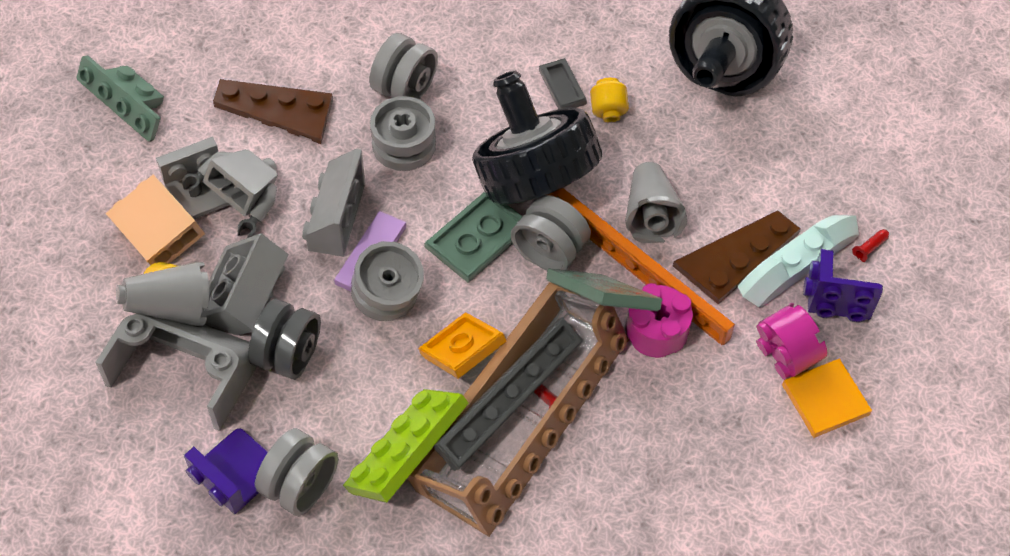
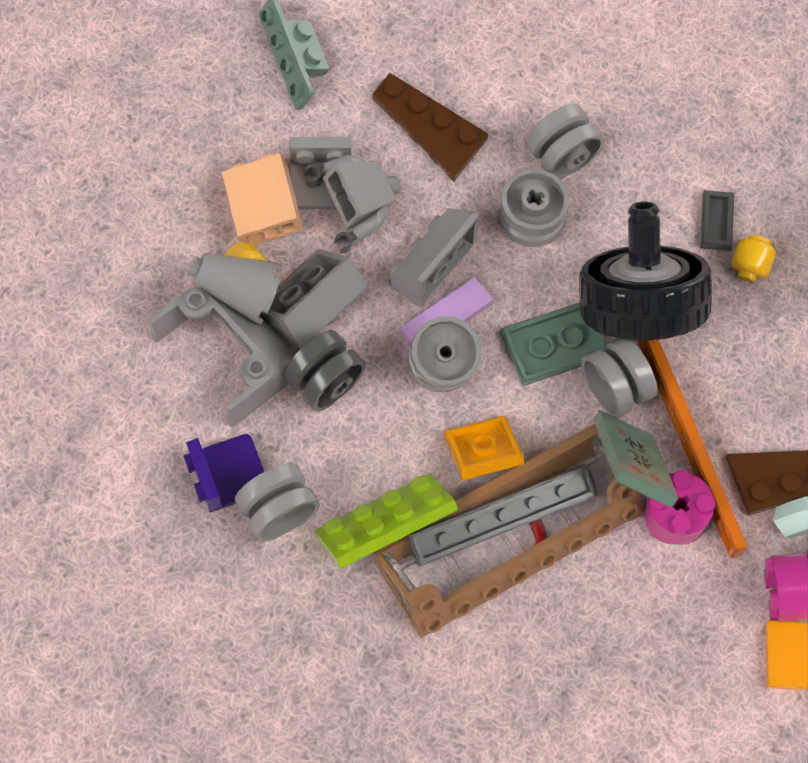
camera: 25 degrees right, 10 degrees up
(653, 206) = (736, 388): light grey cone -> none

